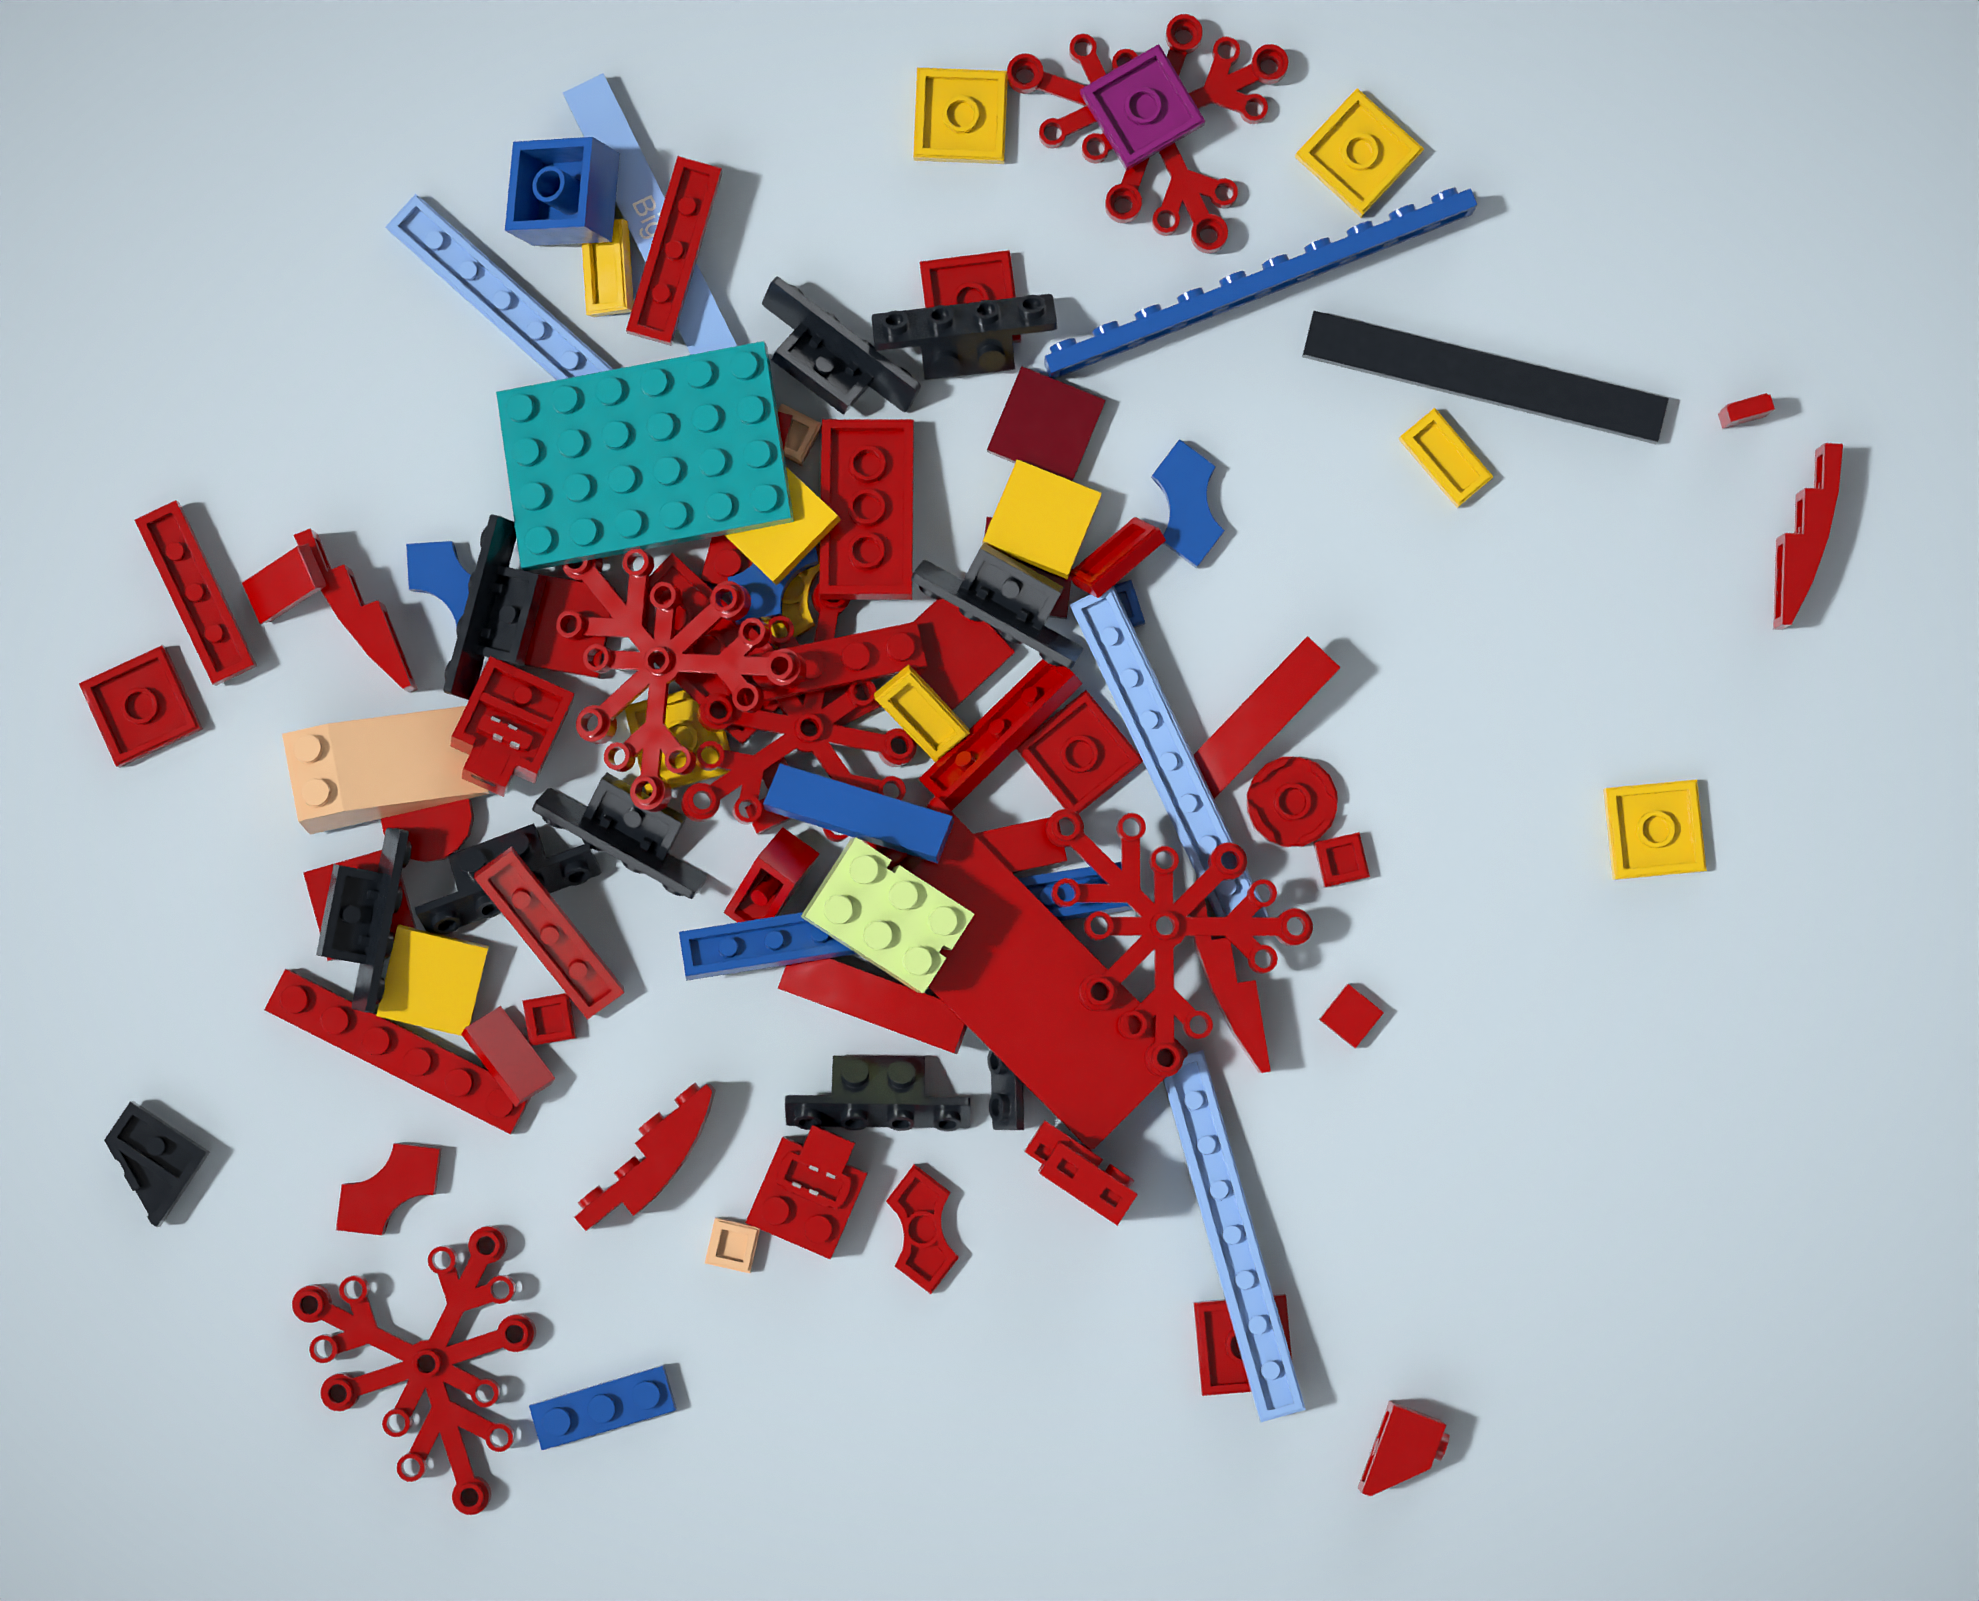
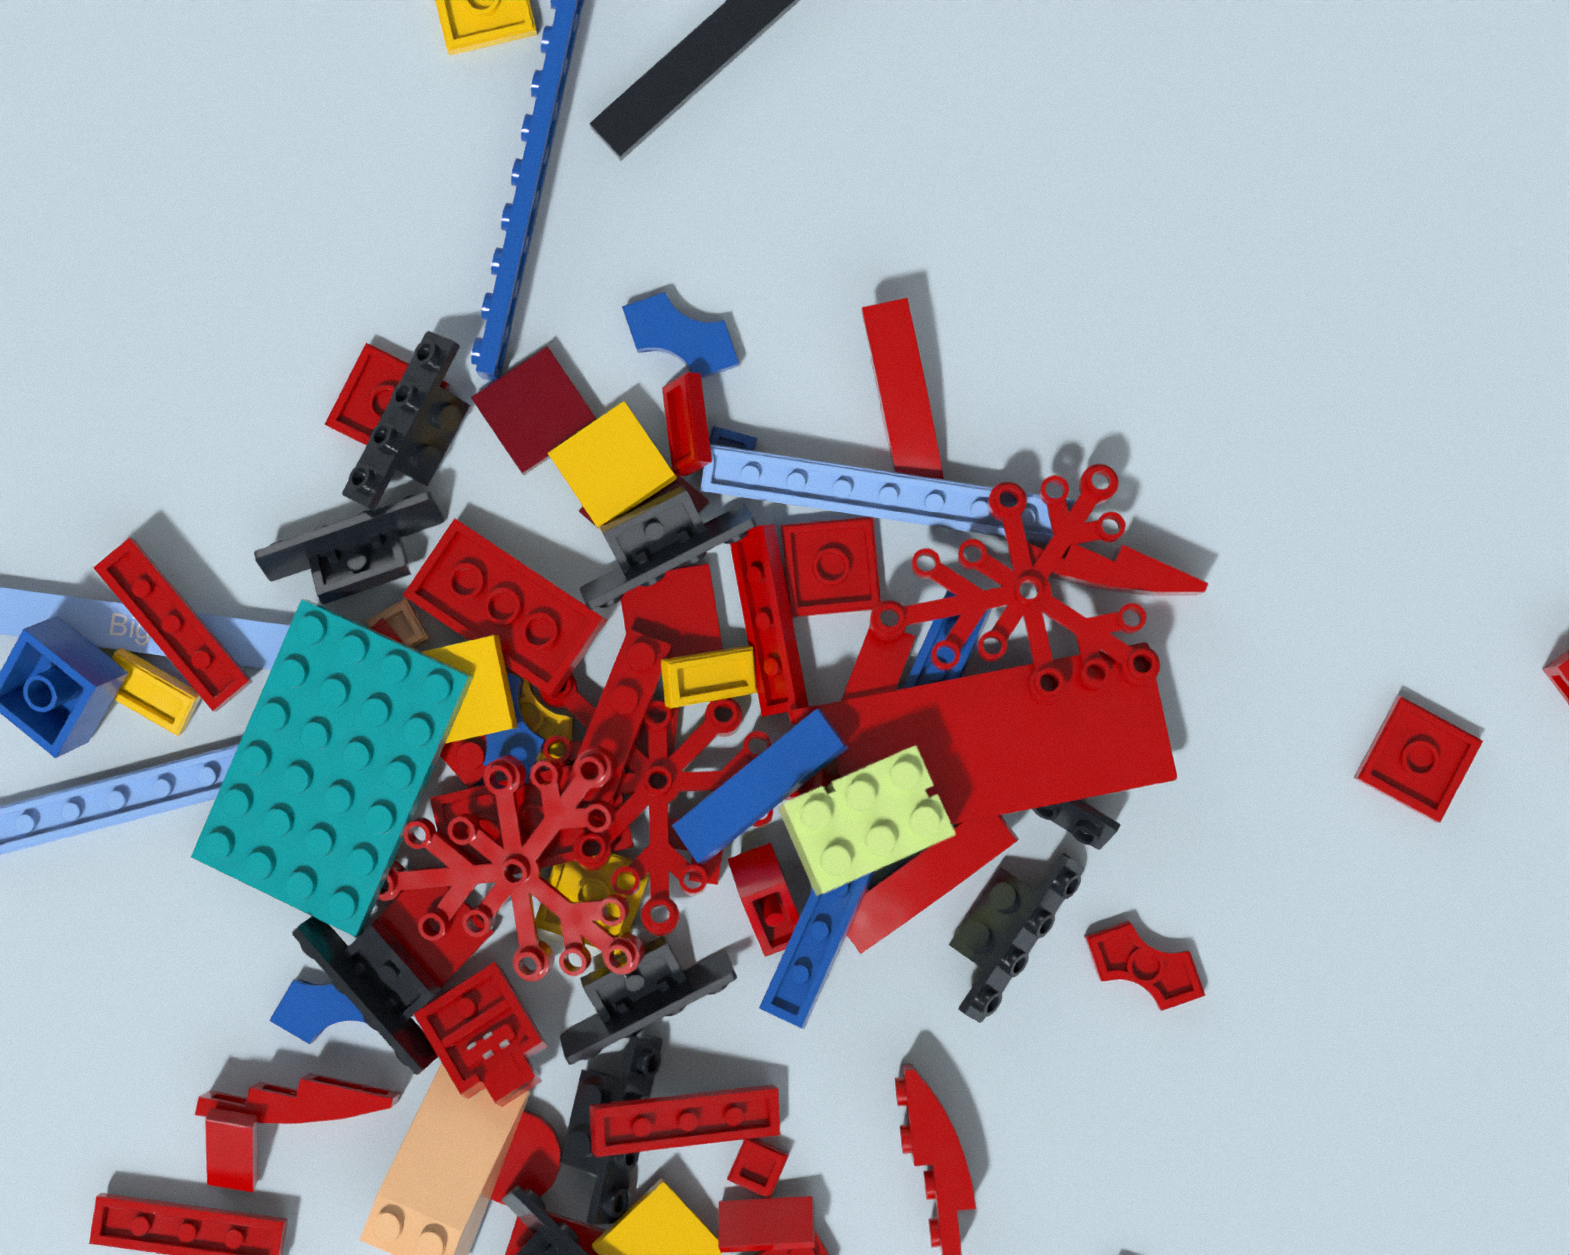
camera: 55 degrees left, 0 degrees up
(732, 1245) = (1052, 1136): light nougat tile -> none
(809, 1191) = (1052, 1042): red piece -> none
(960, 115) = (224, 308): yellow tile -> none
(1079, 1174) = (1191, 801): red piece -> none
(1142, 107) = (320, 149): magenta tile -> none
(1184, 184) = (294, 182): red plant -> none
(1233, 1240) = (1330, 710): light blue tile -> none
(1291, 801) = (989, 416): red tile -> none
(1341, 859) = (1065, 407): red tile -> none
(1351, 1016) = (1201, 486): red tile -> none
(1445, 457) = (786, 97): yellow tile -> none
(1654, 829) = (1211, 132): yellow tile -> none

